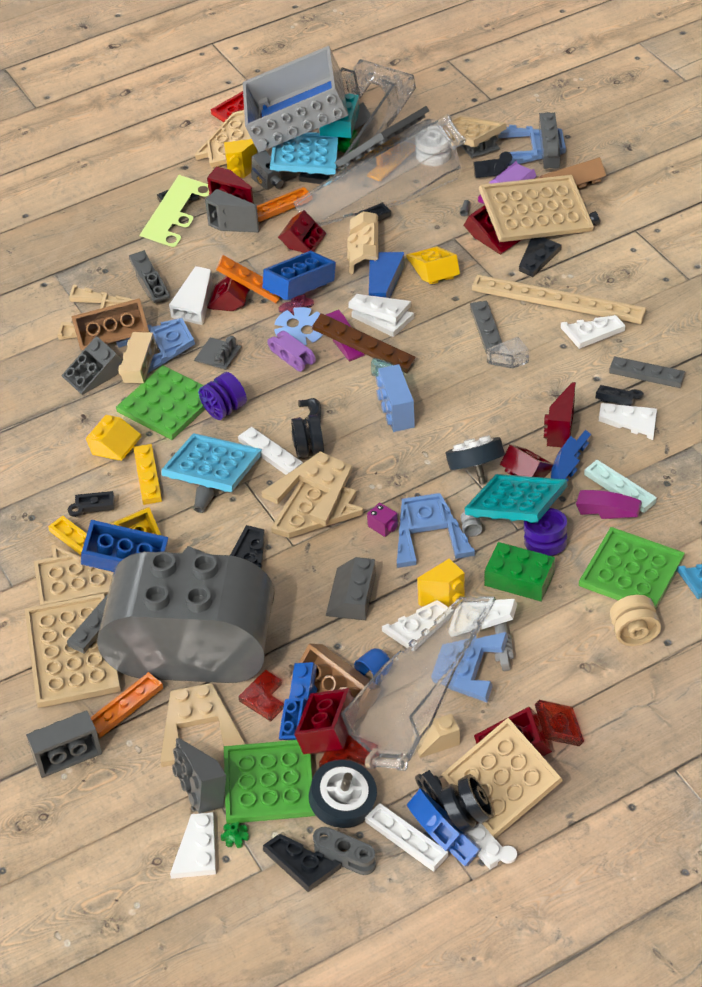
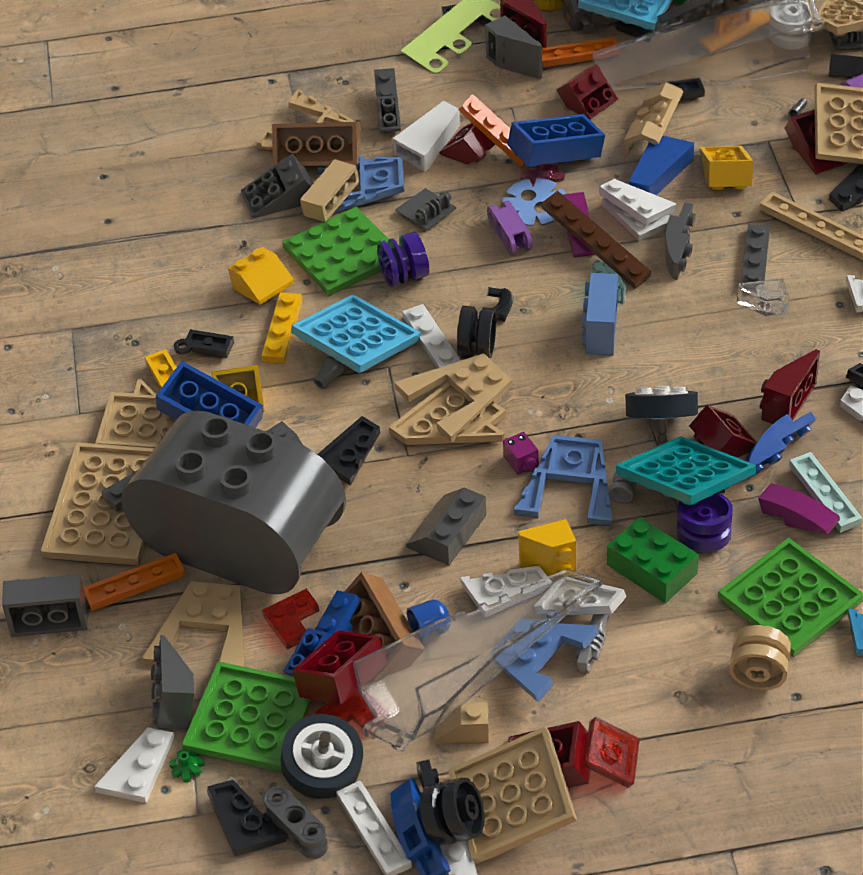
camera: 20 degrees right, 0 degrees up
(424, 329) = (678, 240): none -> dark grey slope

